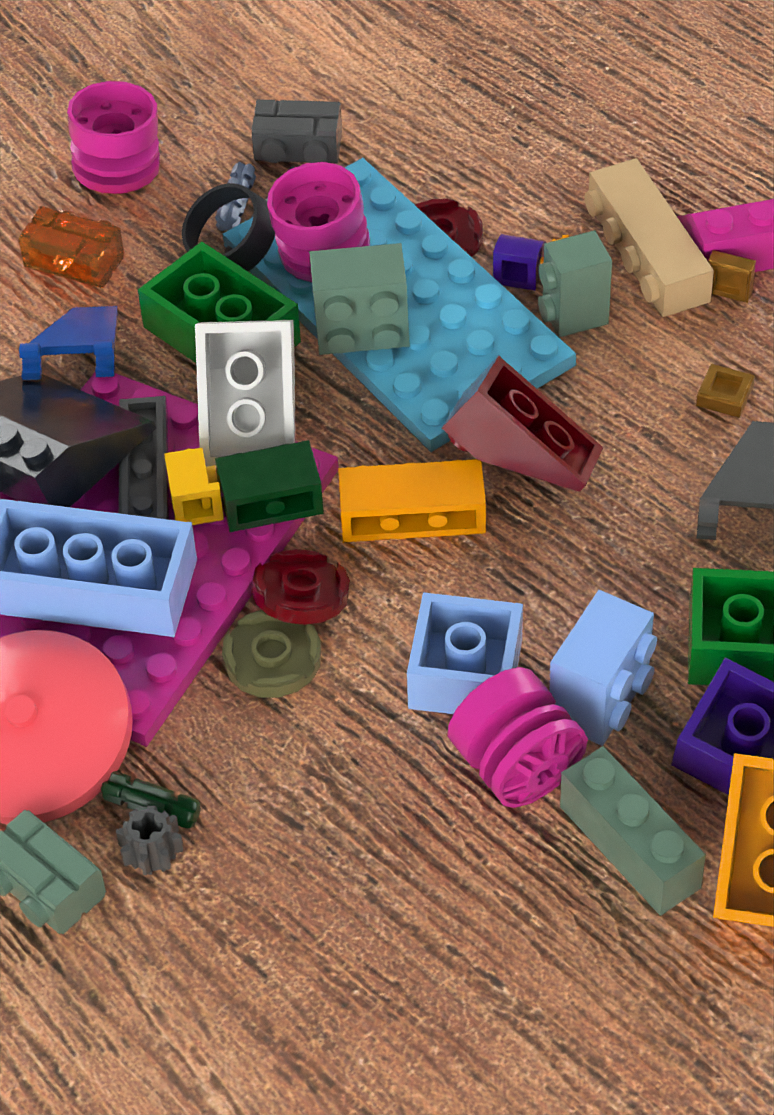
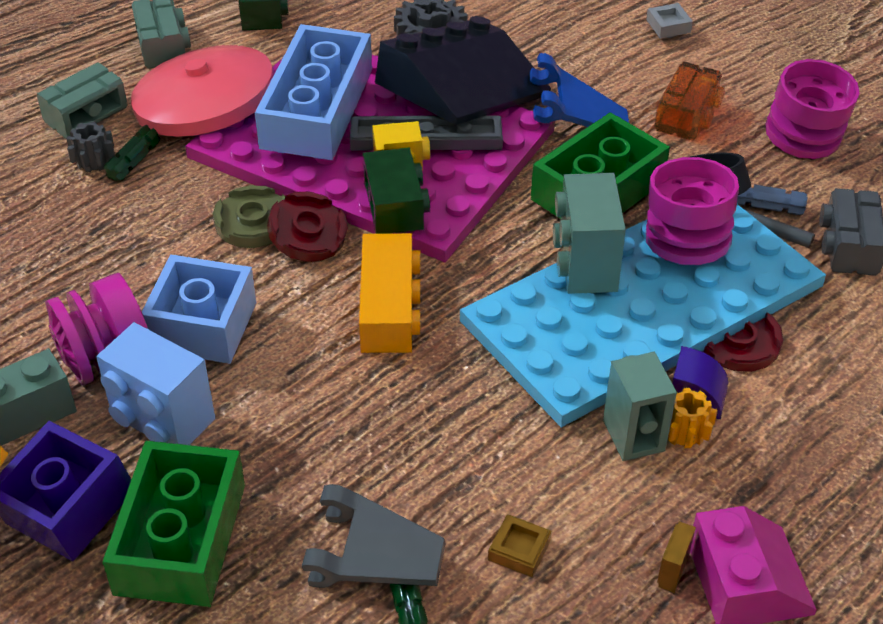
camera: 90 degrees right, 5 degrees down
(245, 386) = (491, 165): white slope -> none
(521, 430) = (441, 356): dark red slope -> none
(649, 238) = (766, 478): tan brick -> none

